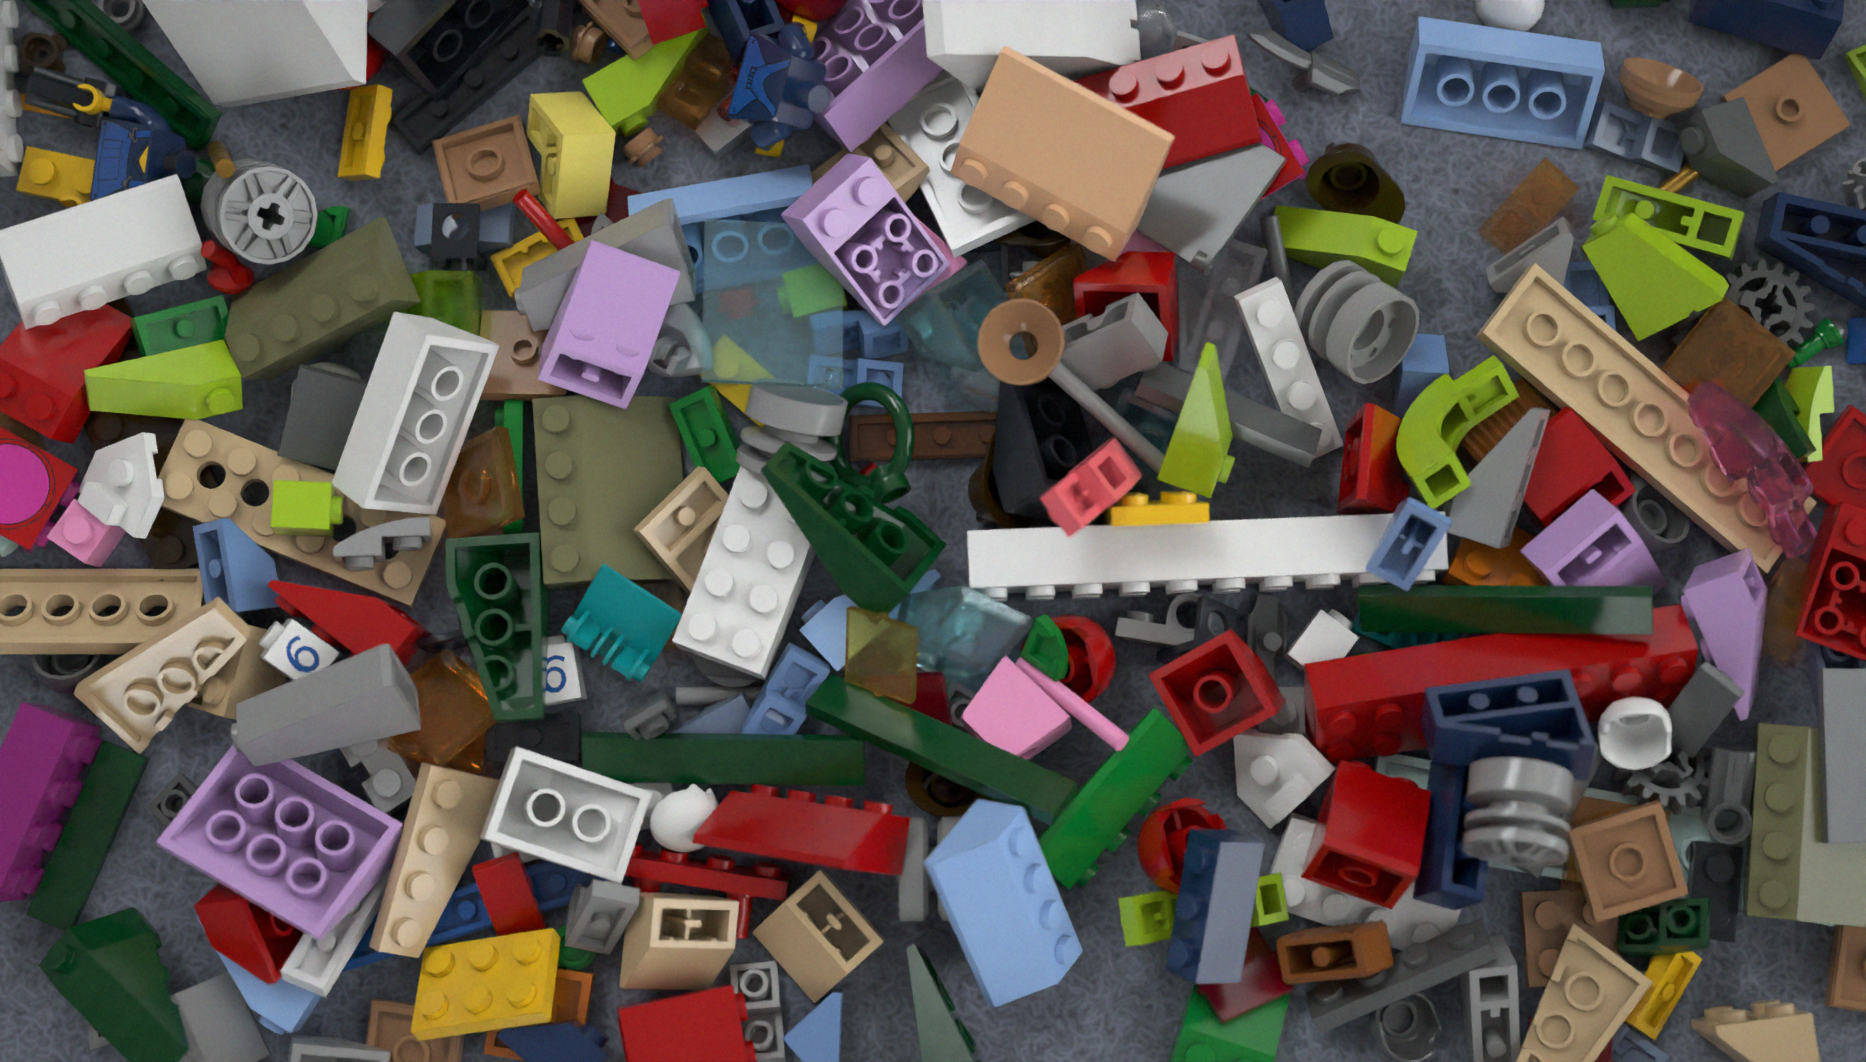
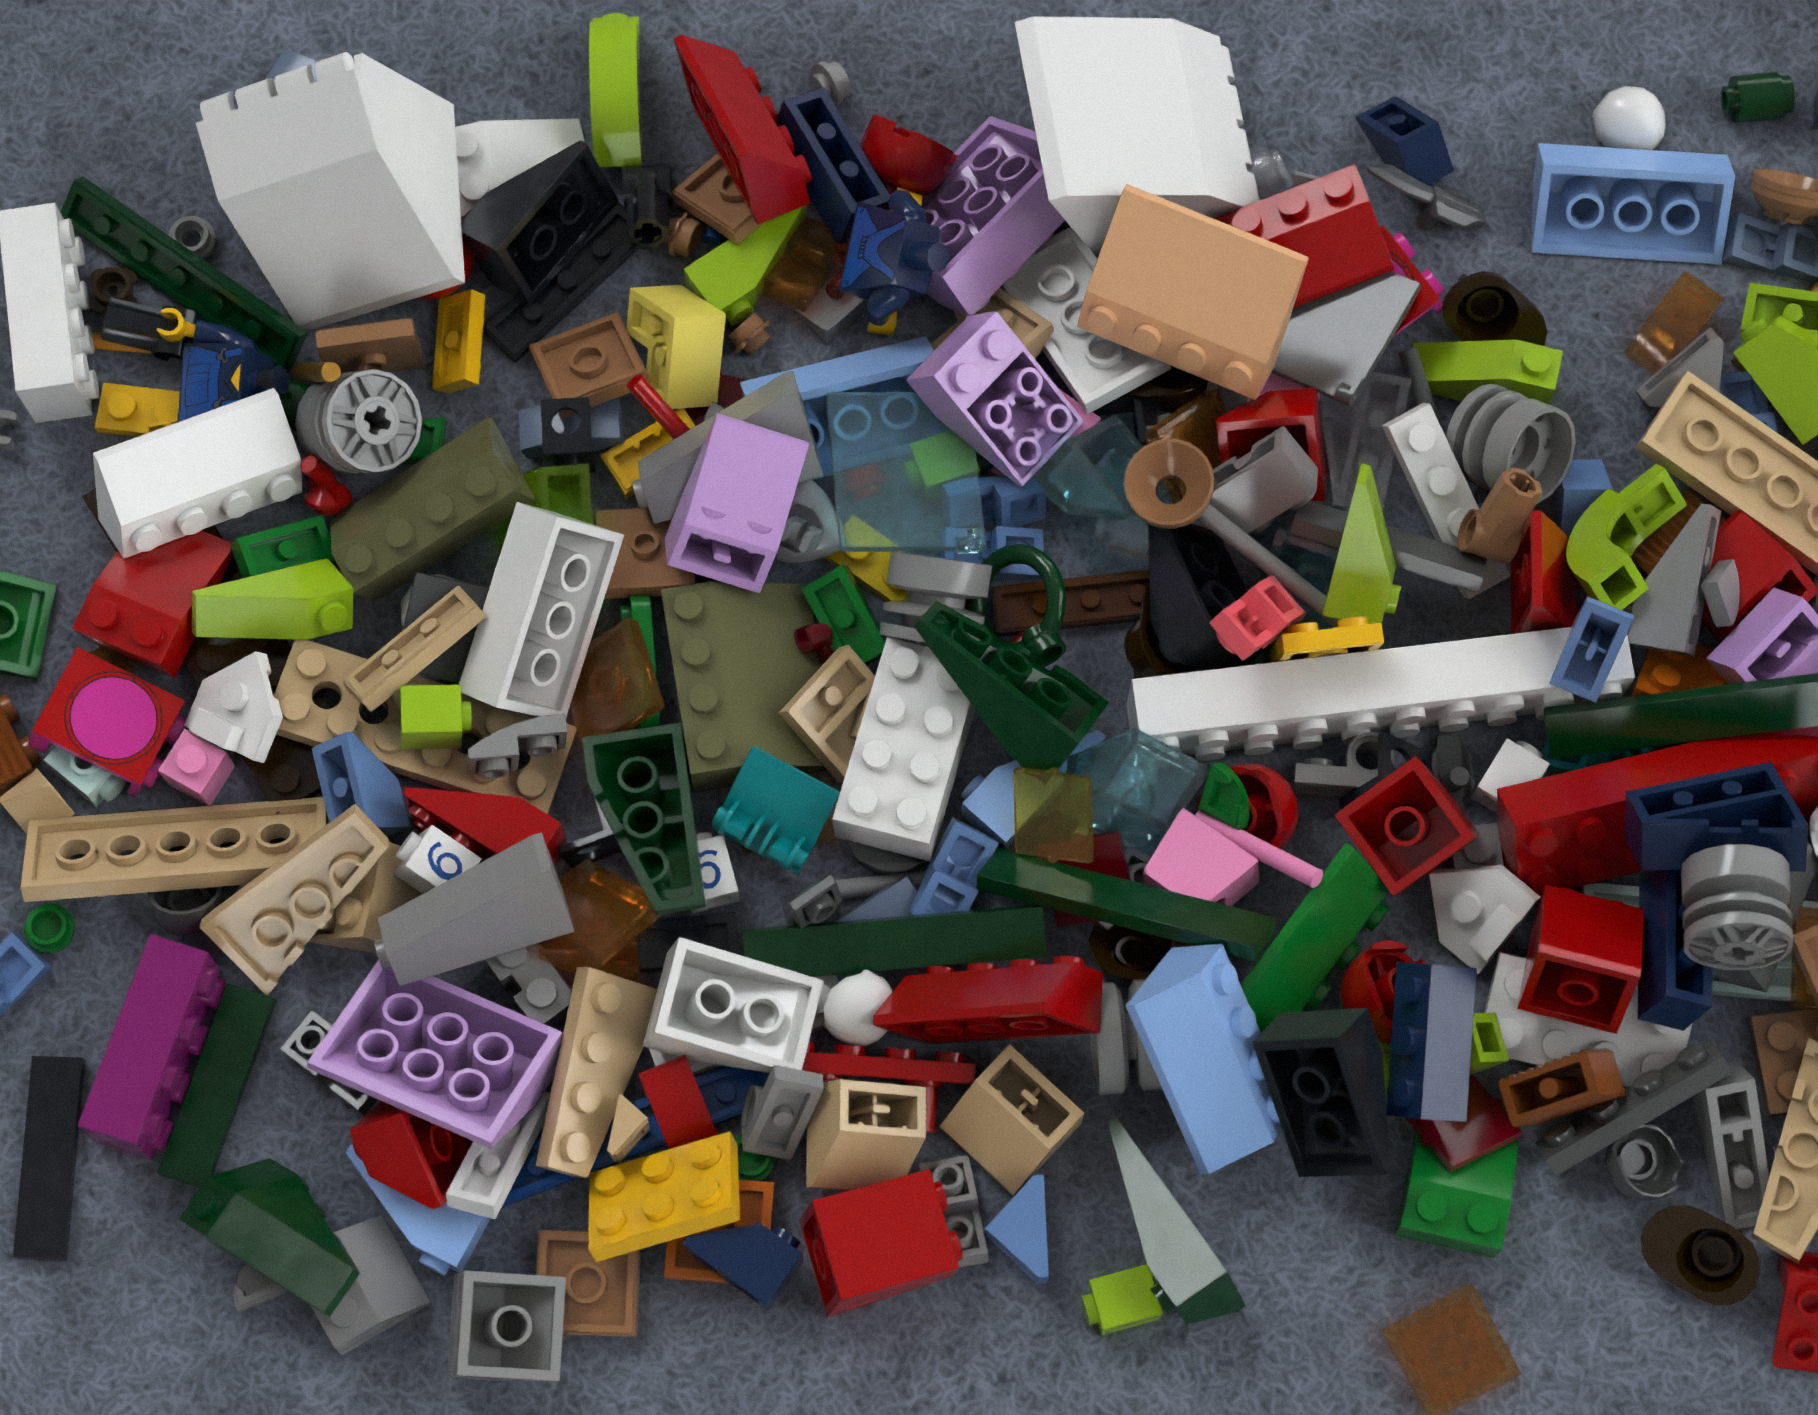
camera: 10 degrees left, 10 degrees down
(276, 137) = (377, 346): none -> medium nougat plate
(292, 442) = (414, 648): none -> tan tile
(458, 914) = (627, 1129): none -> tan slope
(675, 454) = (815, 638): none -> dark red hand
(1112, 944) = (1328, 1090): none -> black slope
(1334, 404) = (1496, 526): none -> medium nougat piece
(1542, 490) = (1722, 592): none -> light grey tile

